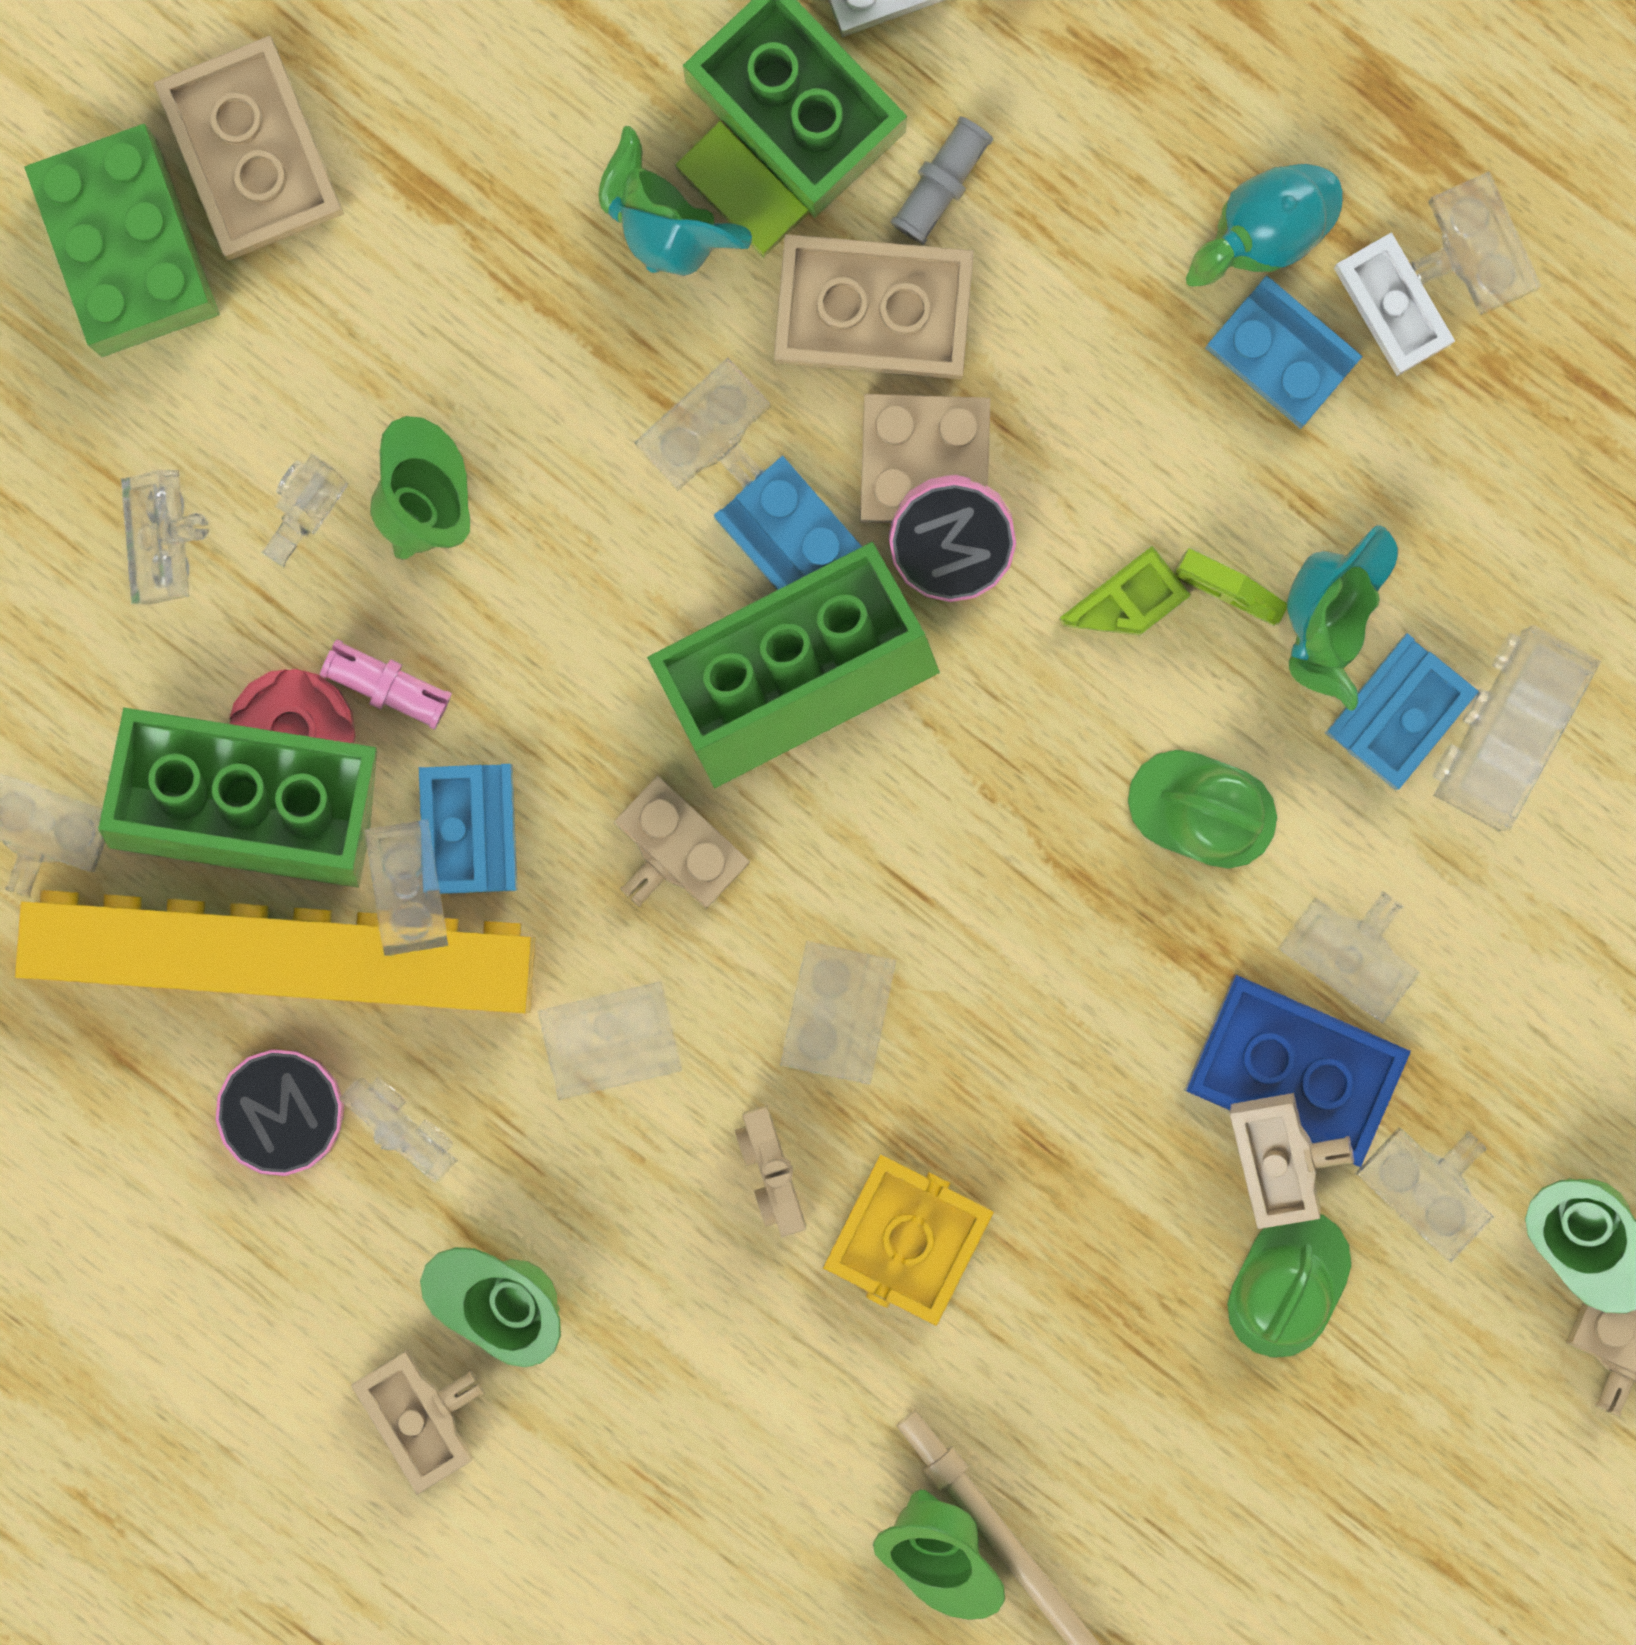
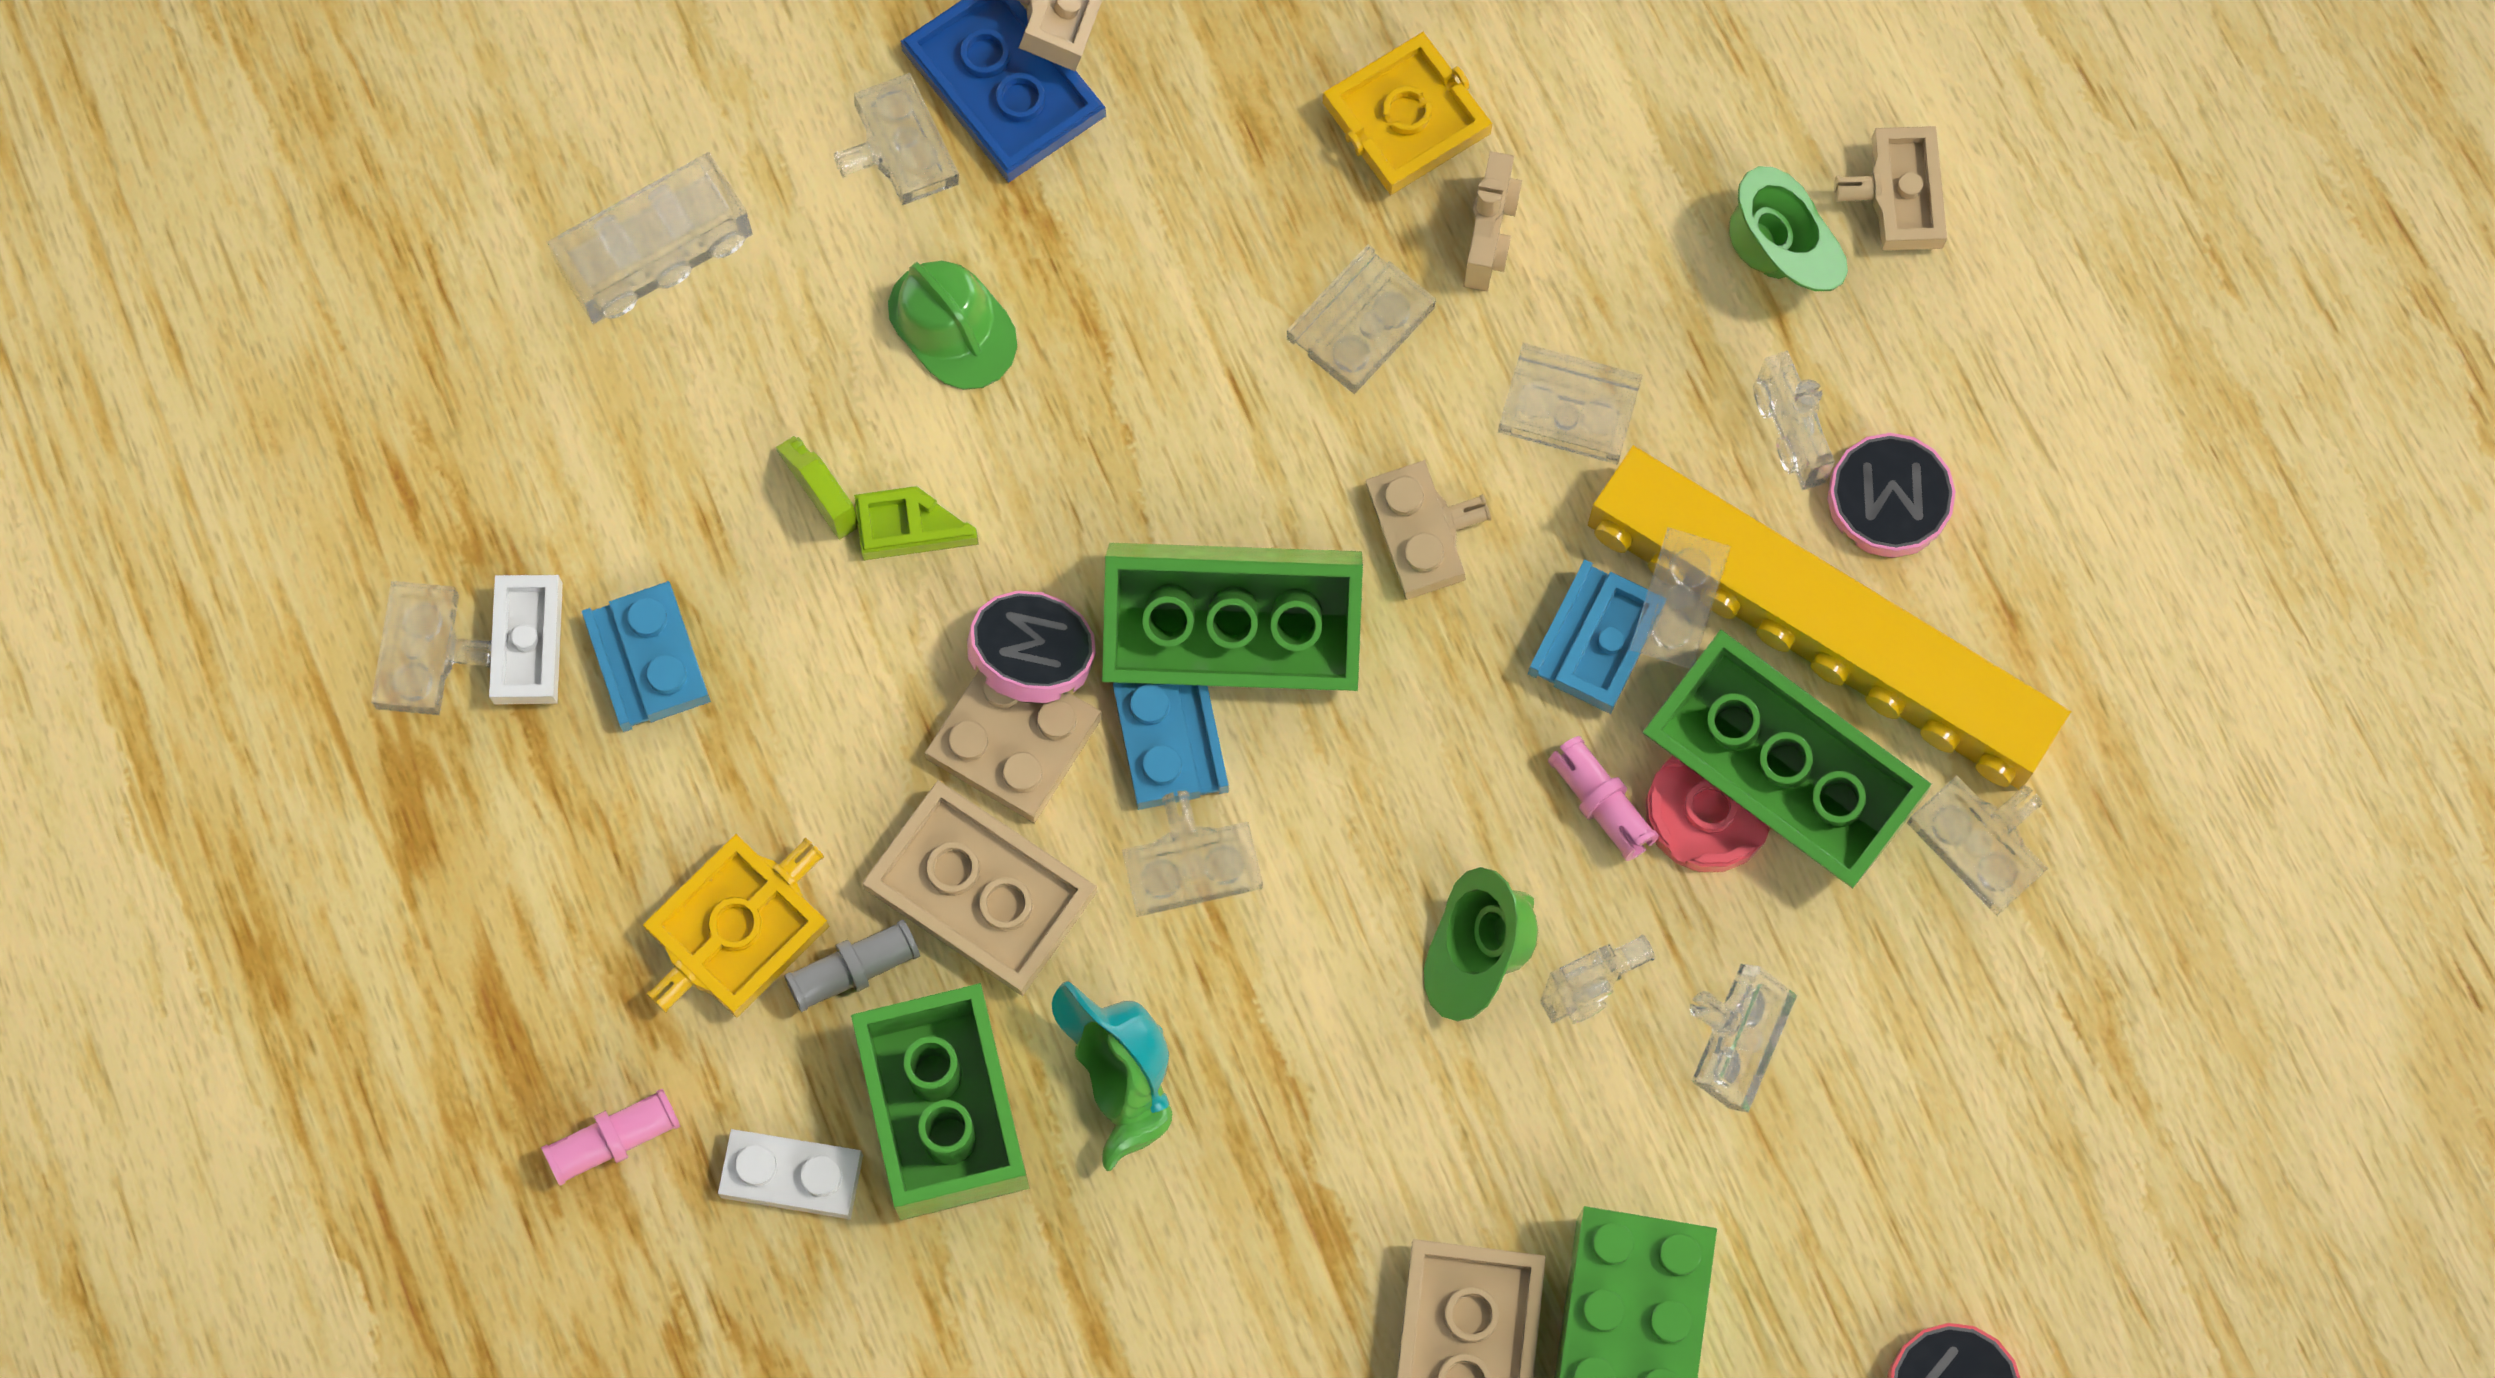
camera: 155 degrees left, 15 degrees down
(741, 188) = (1035, 1062): lime tile -> none
(1060, 159) = (736, 925): none -> yellow plate
(1270, 222) = (587, 767): teal hair -> none
(1331, 611) = (750, 409): hair -> none
(1402, 712) = (737, 304): dark azure plate -> none

